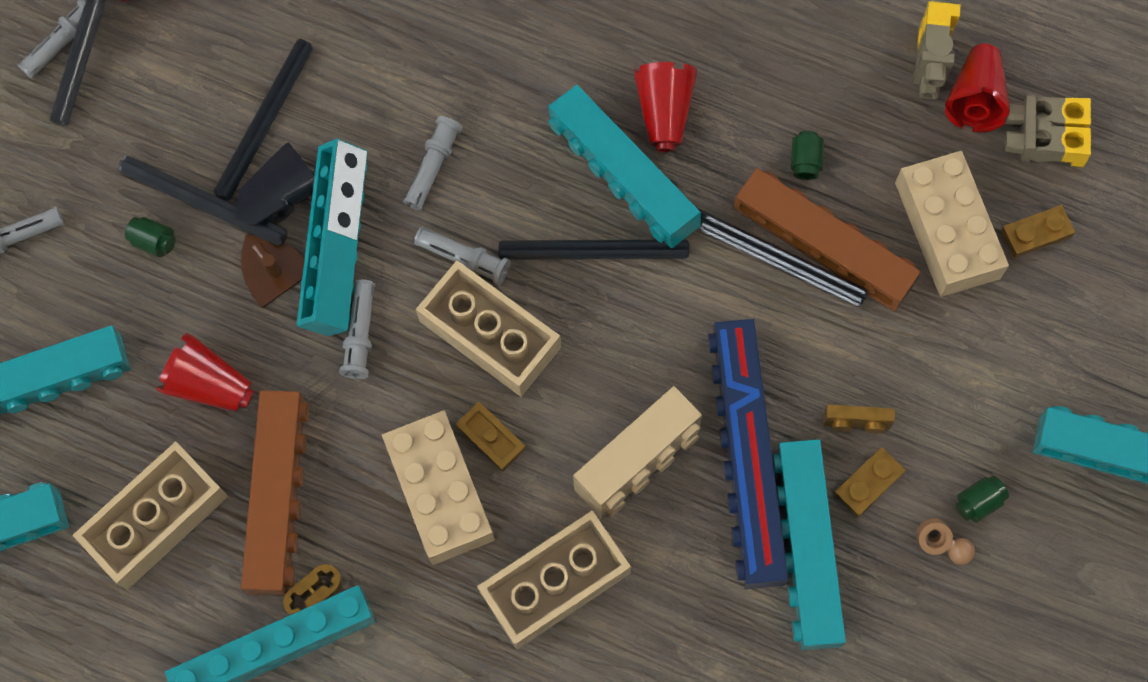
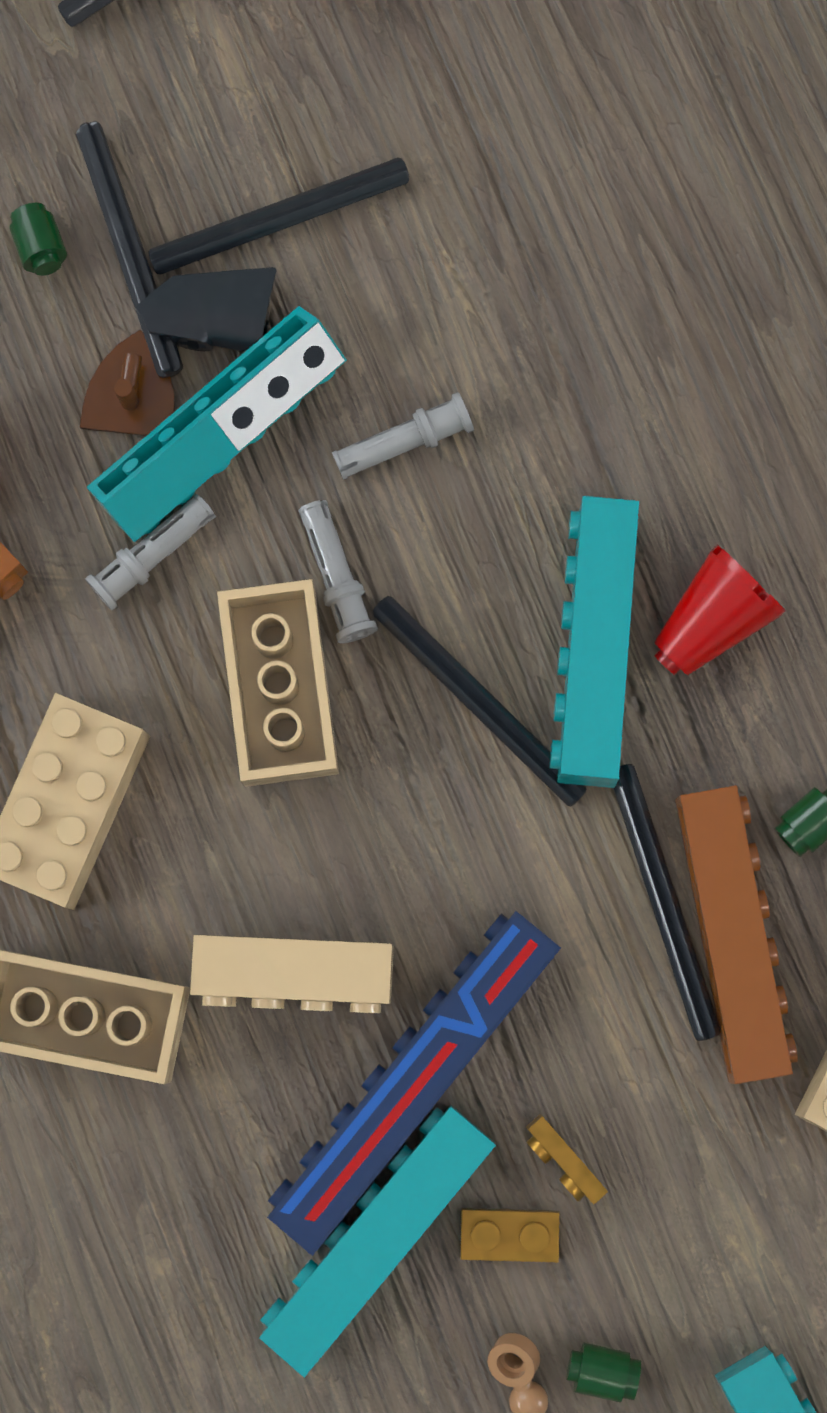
camera: 45 degrees right, 10 degrees up
(490, 436) = (171, 799): pearl gold plate -> none

